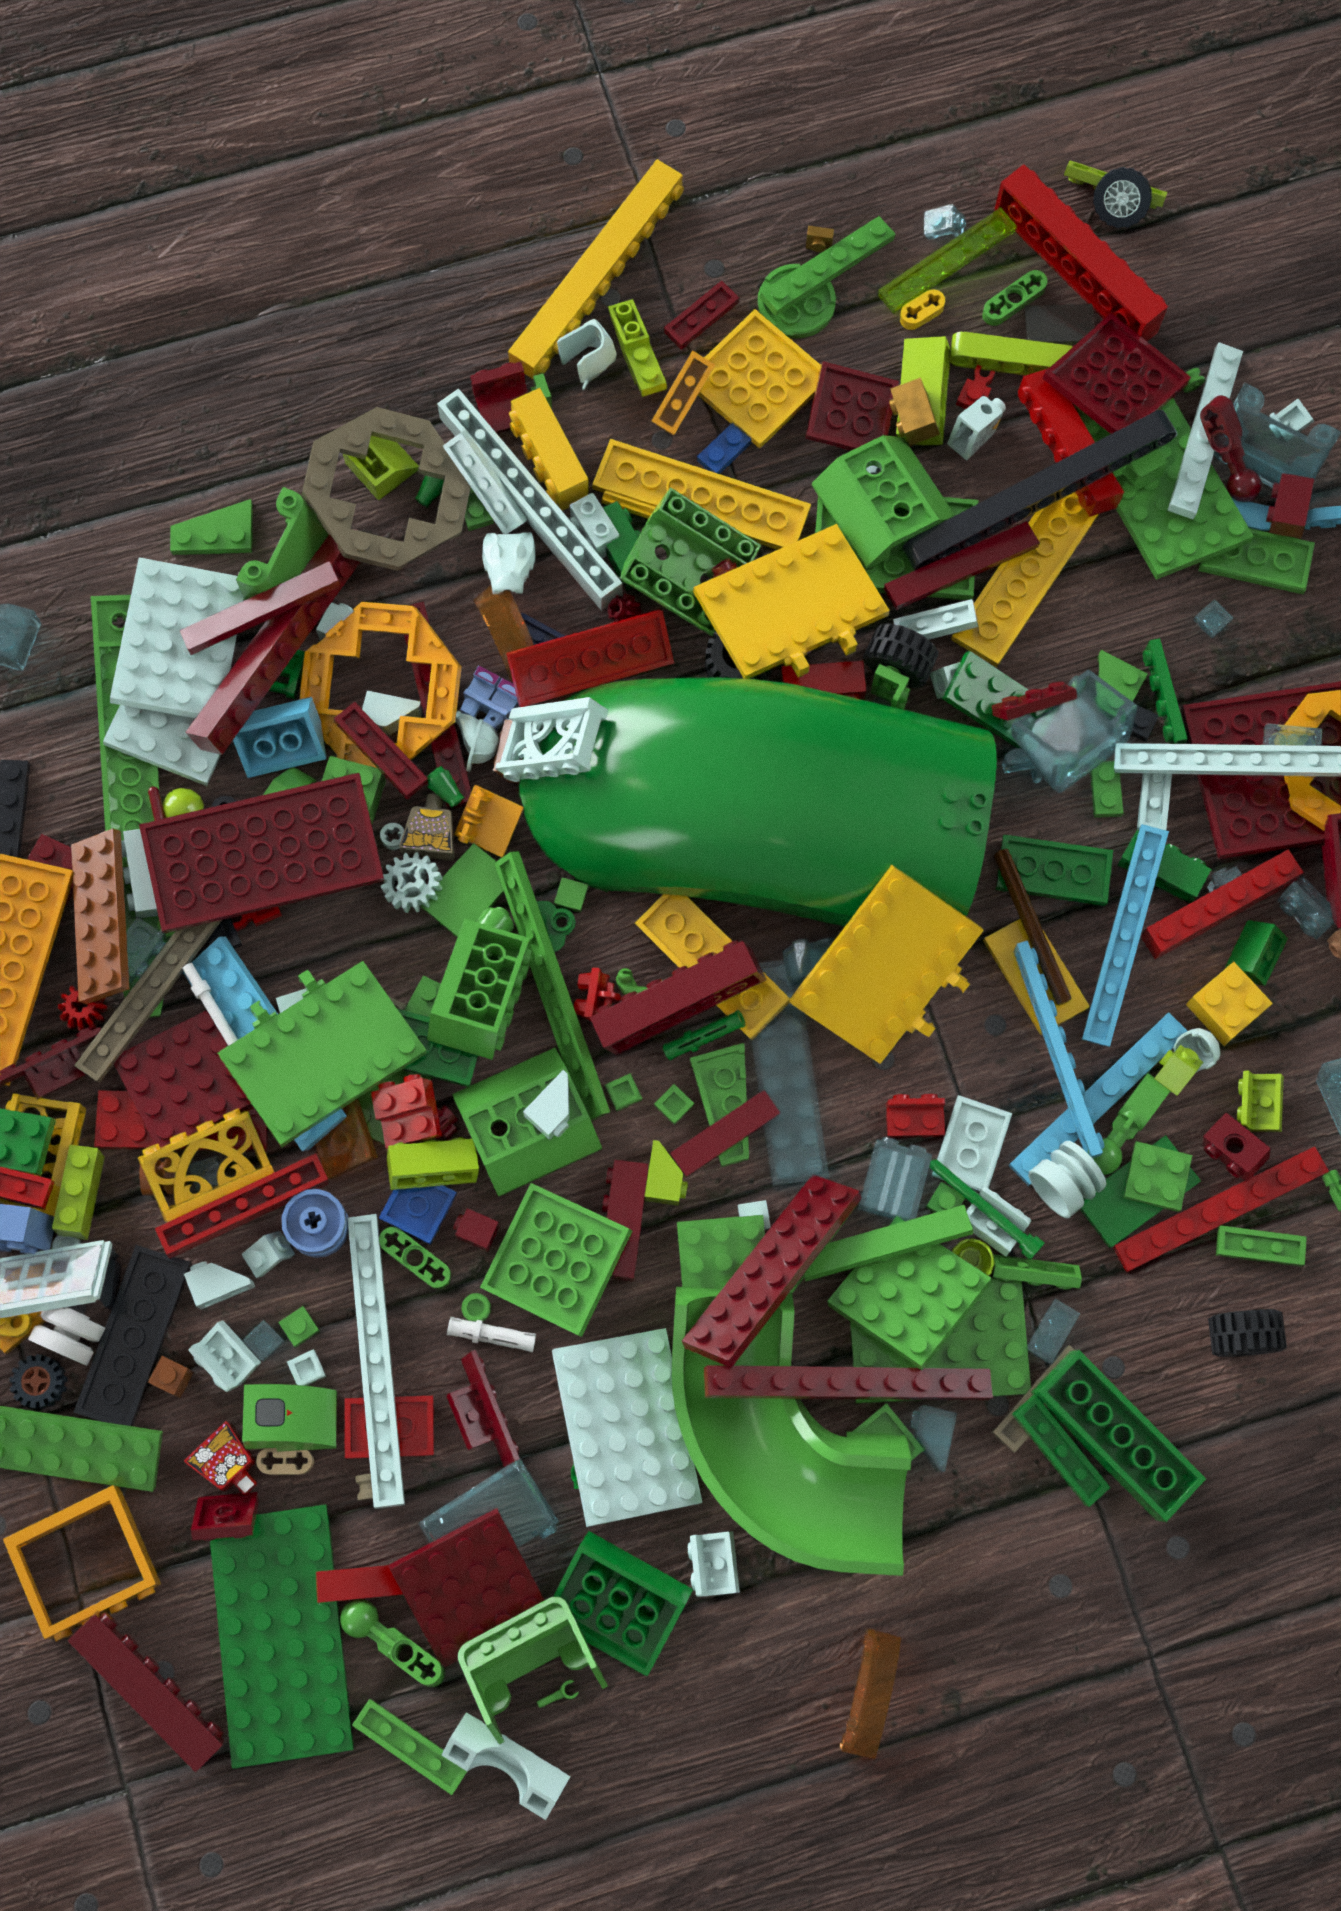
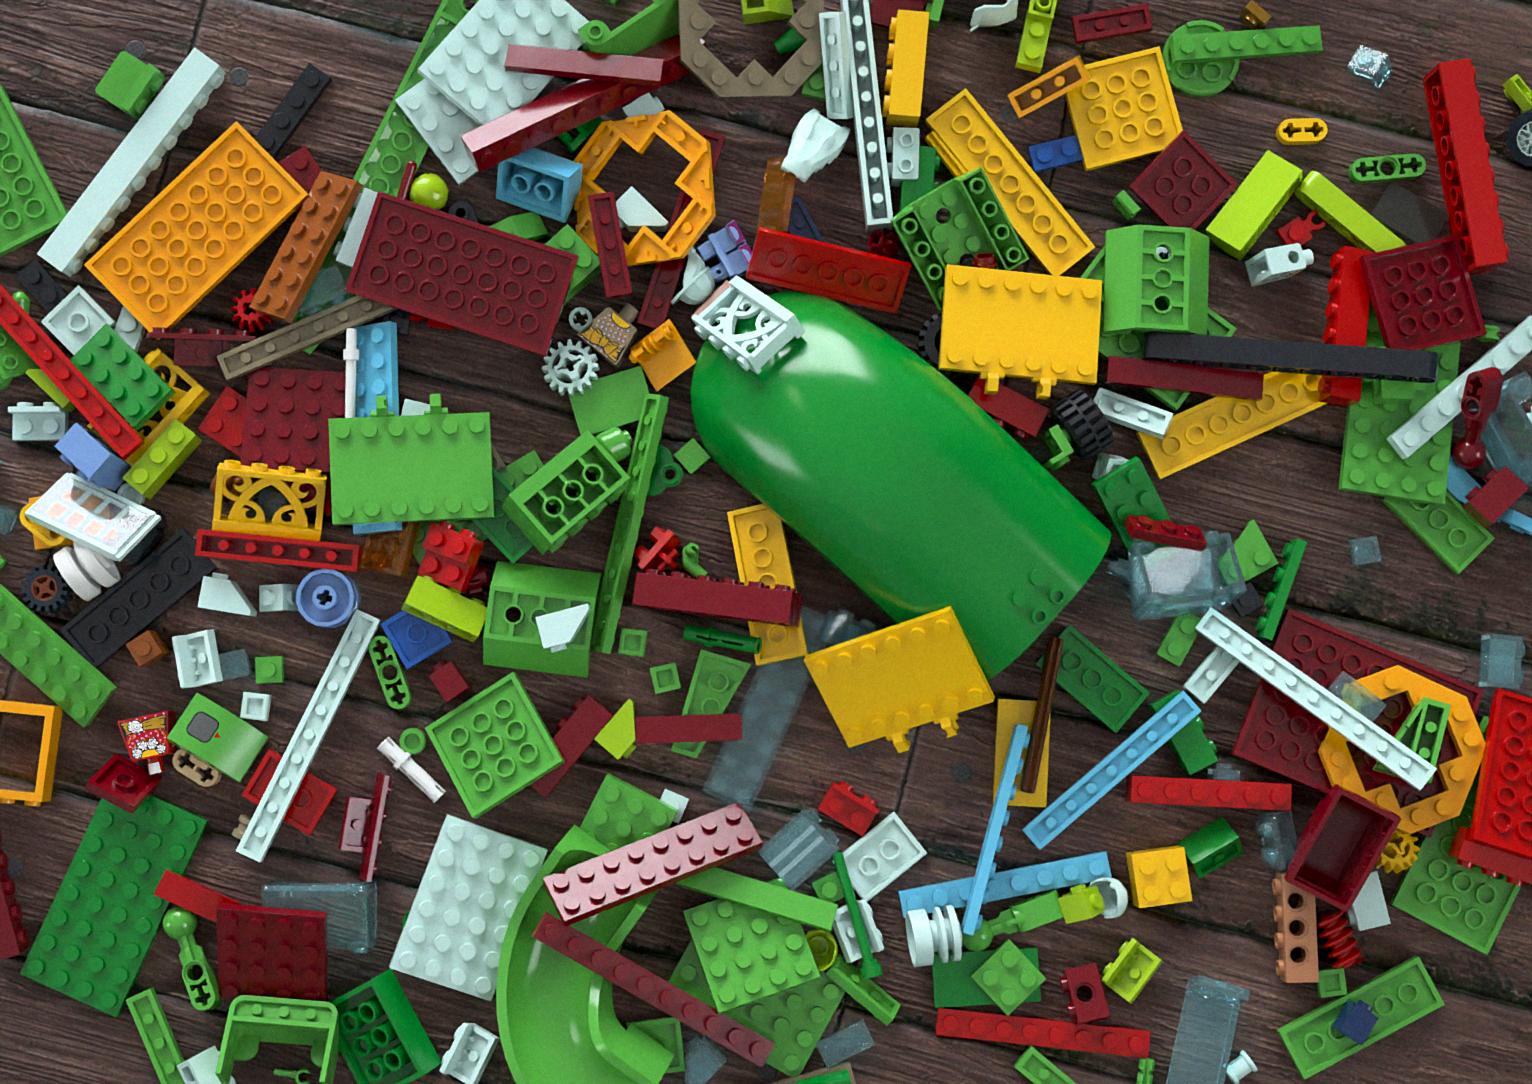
camera: 30 degrees right, 10 degrees up
(444, 786) = (644, 306): green cone -> none
(814, 454) = (1126, 205): none -> bright green tile
(915, 412) = (1231, 221): pearl gold brick -> none
(947, 260) = (1351, 100): clear neon green plate -> none

